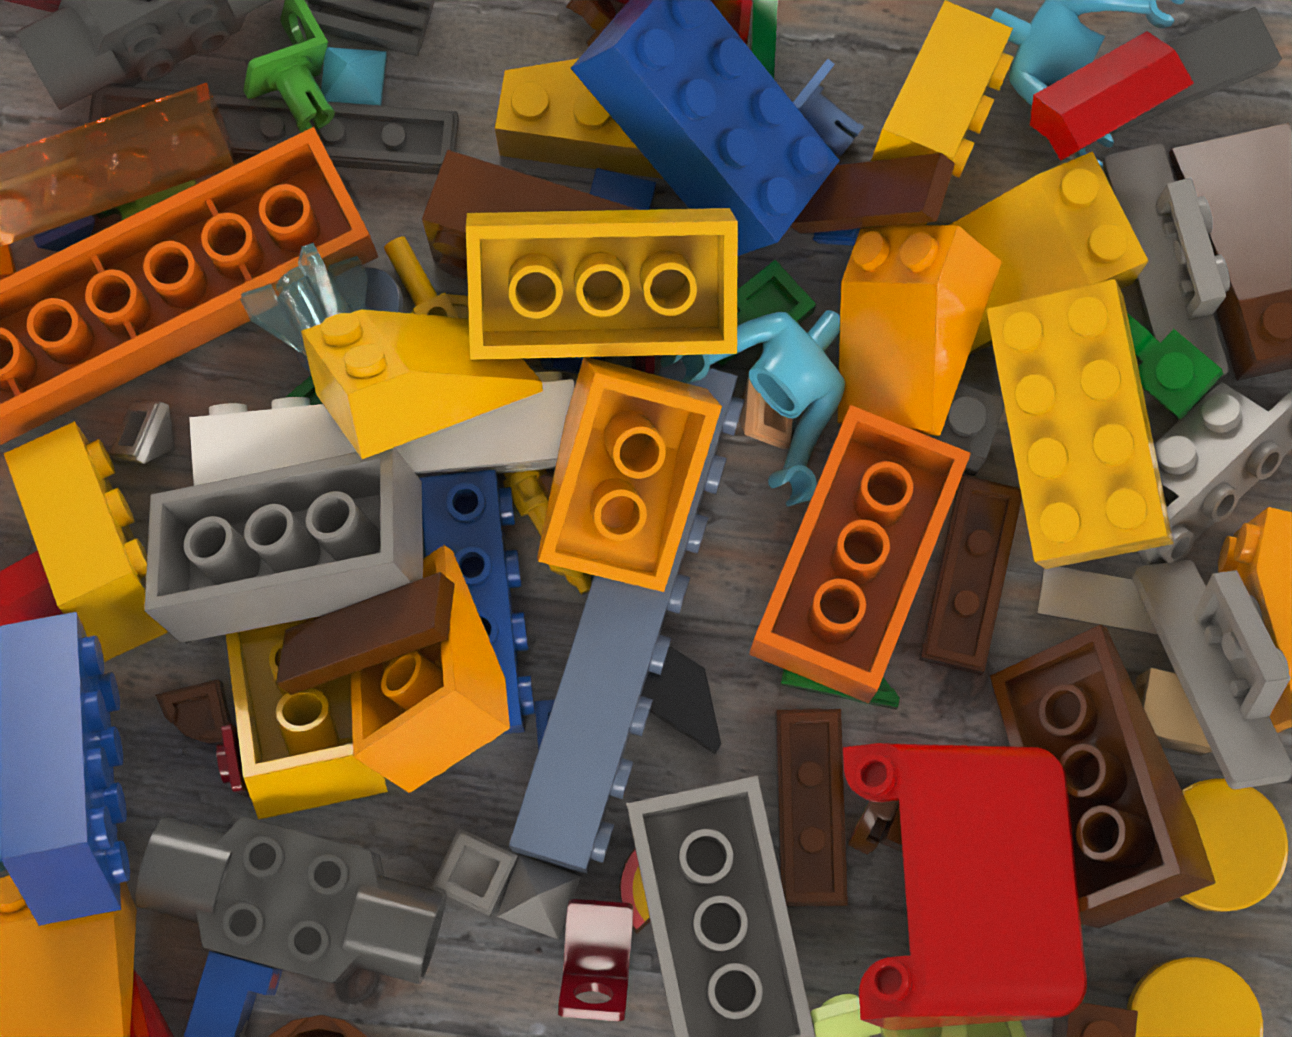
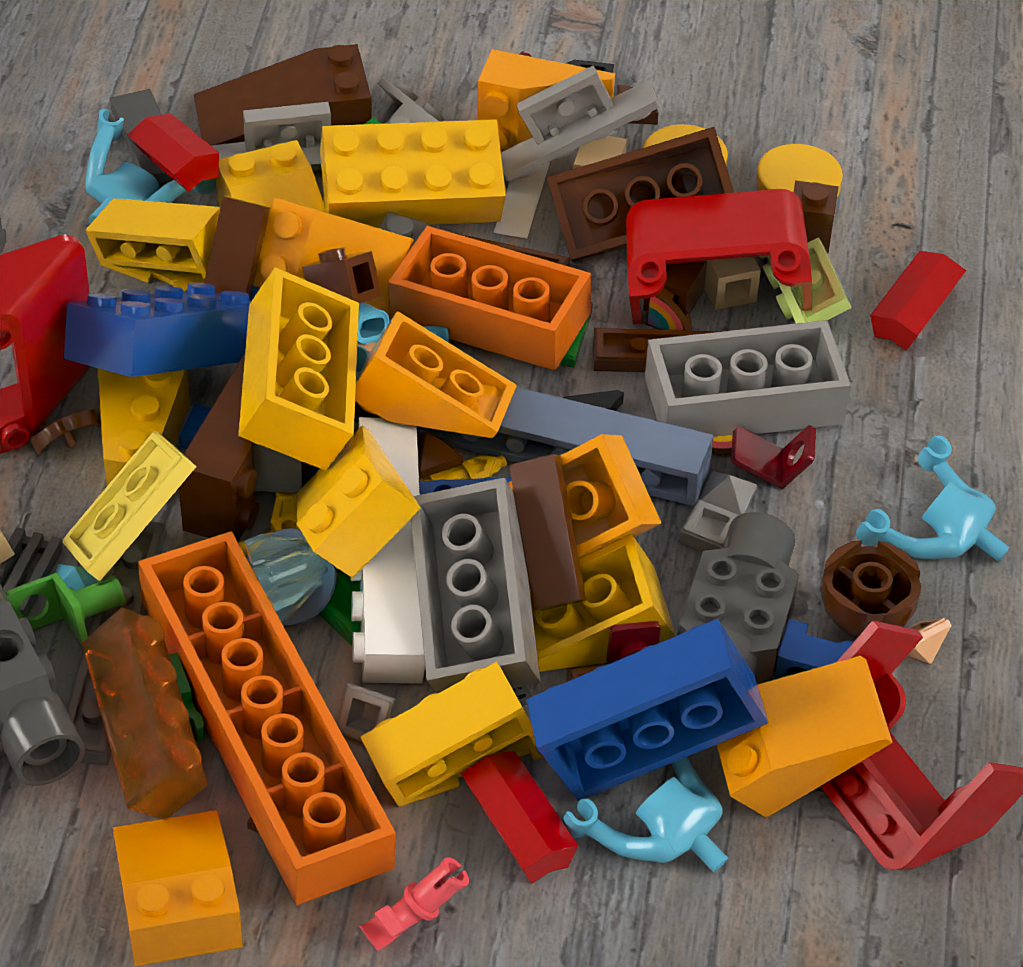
camera: 90 degrees left, 30 degrees down
(415, 107) = (127, 505): none -> light yellow tile
(834, 339) = (344, 274): none -> reddish brown brick

